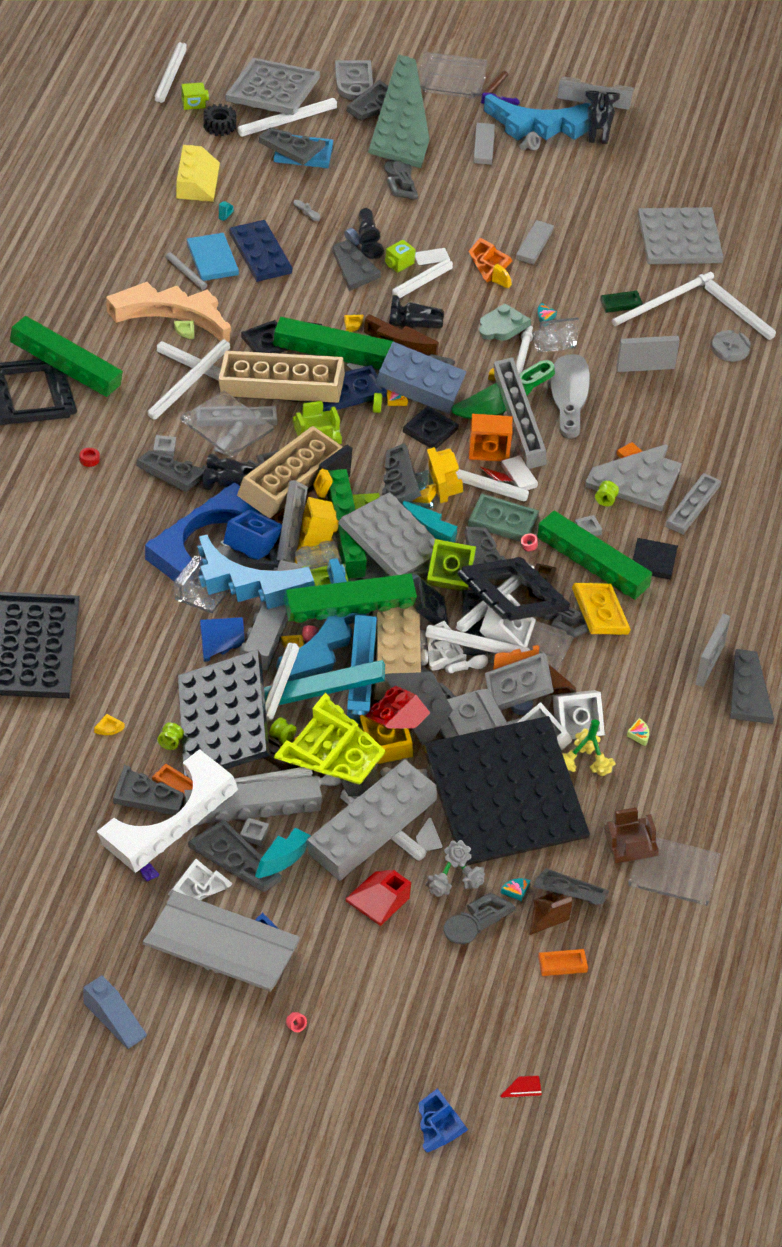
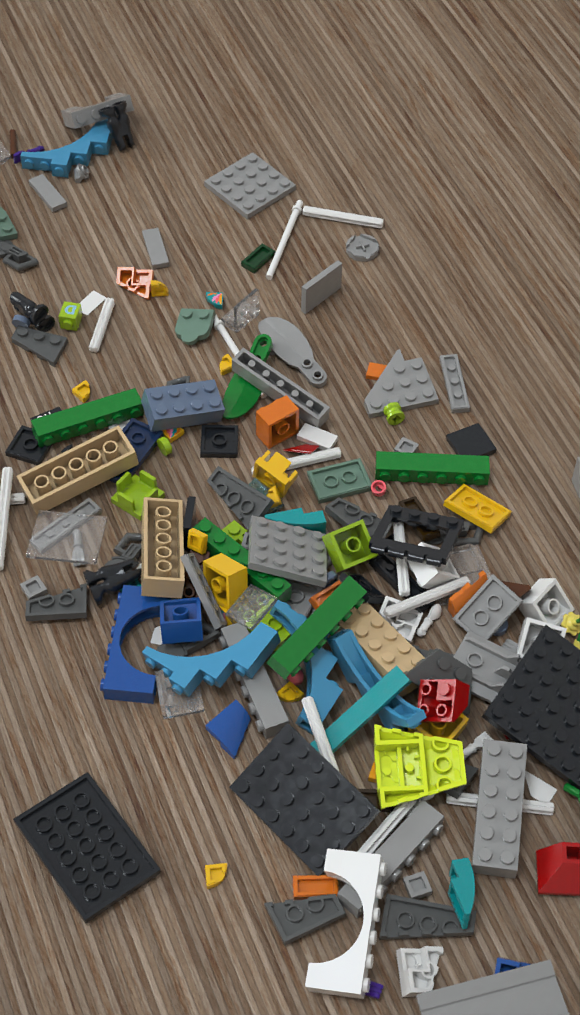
camera: 35 degrees left, 5 degrees up
(170, 736) = (275, 848): lime wheel -> none
(282, 730) = (356, 776): lime wheel -> none
(407, 336) = (139, 379): reddish brown slope -> none
(415, 315) = (124, 357): black piece -> none

